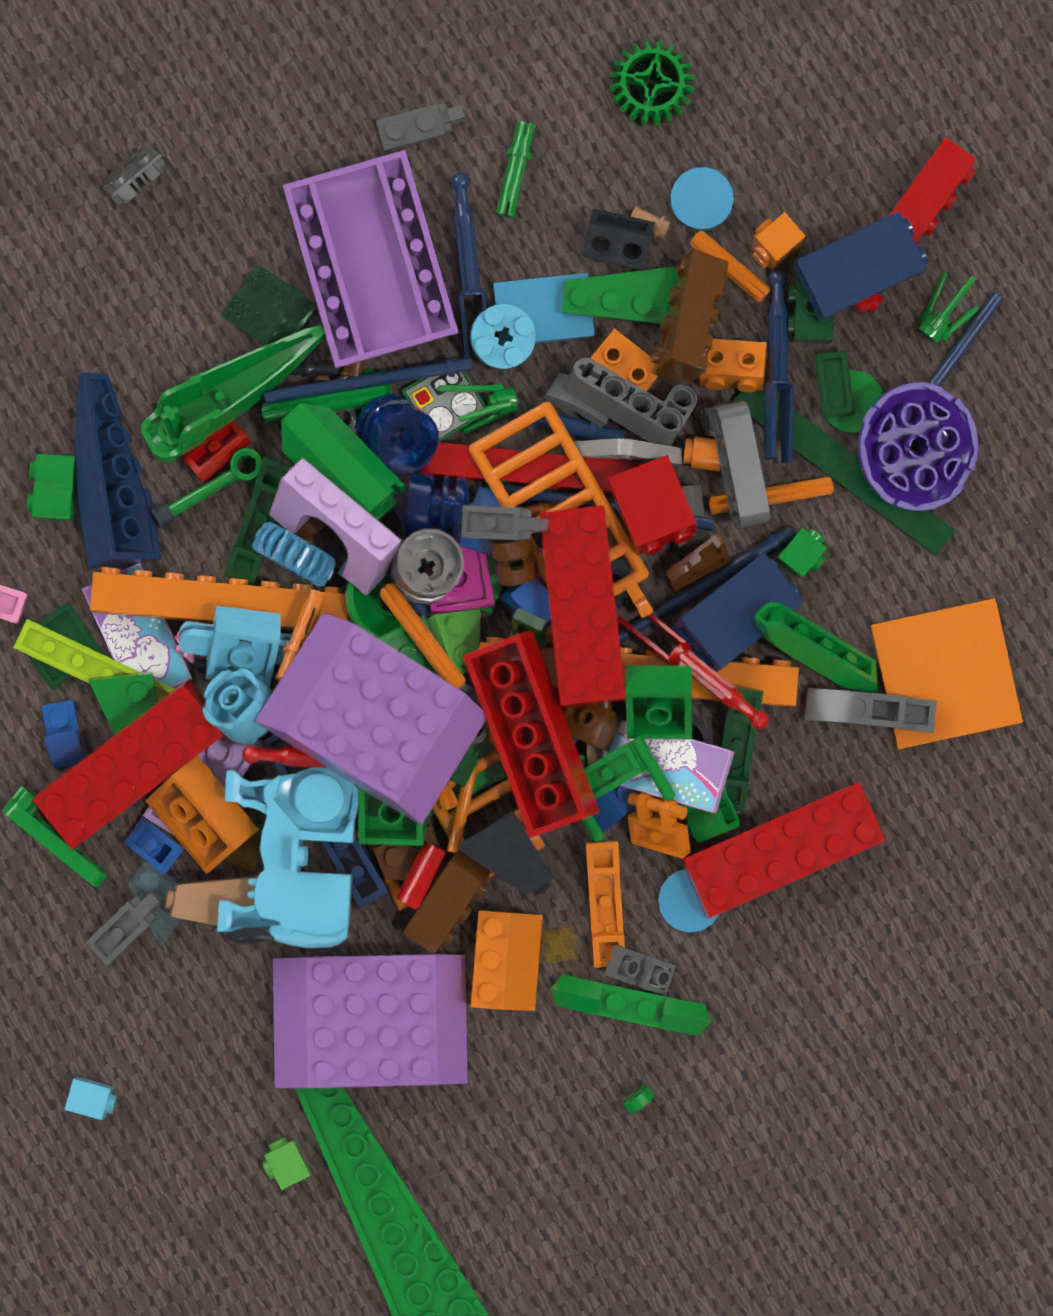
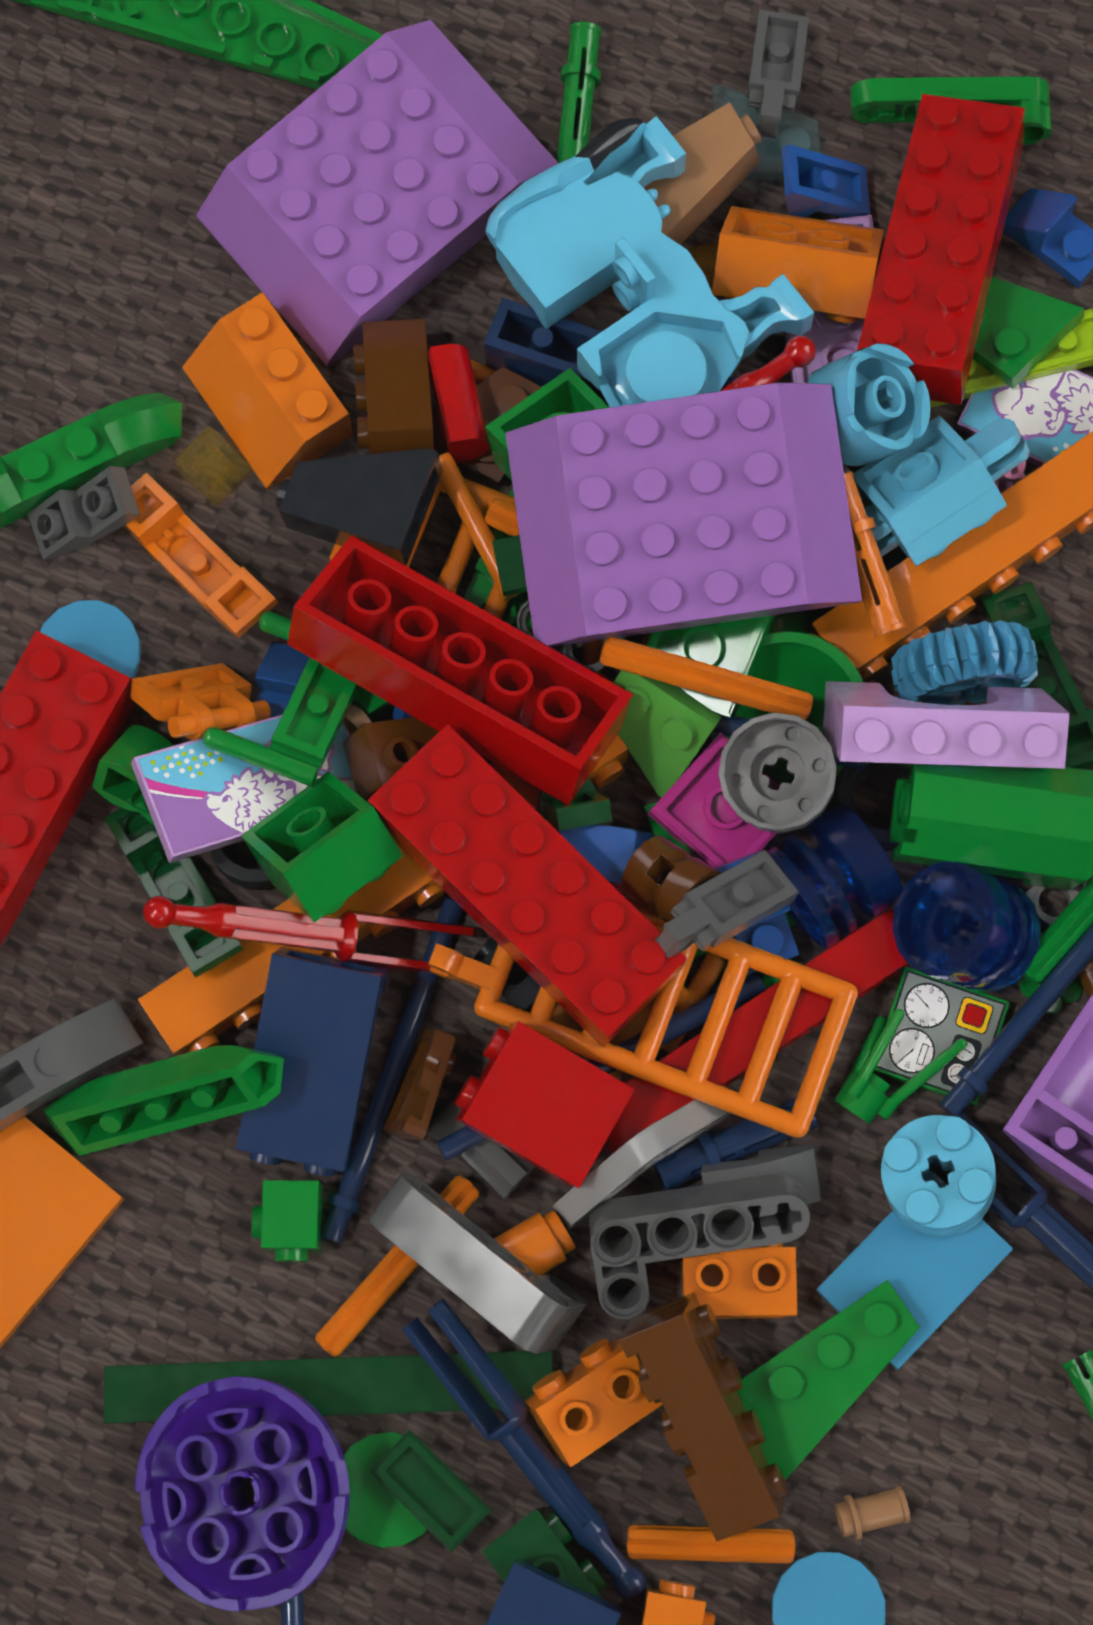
camera: 145 degrees right, 10 degrees down
(205, 1019) = (584, 47): none -> green pin
(619, 231) = (895, 1449): black brick -> none

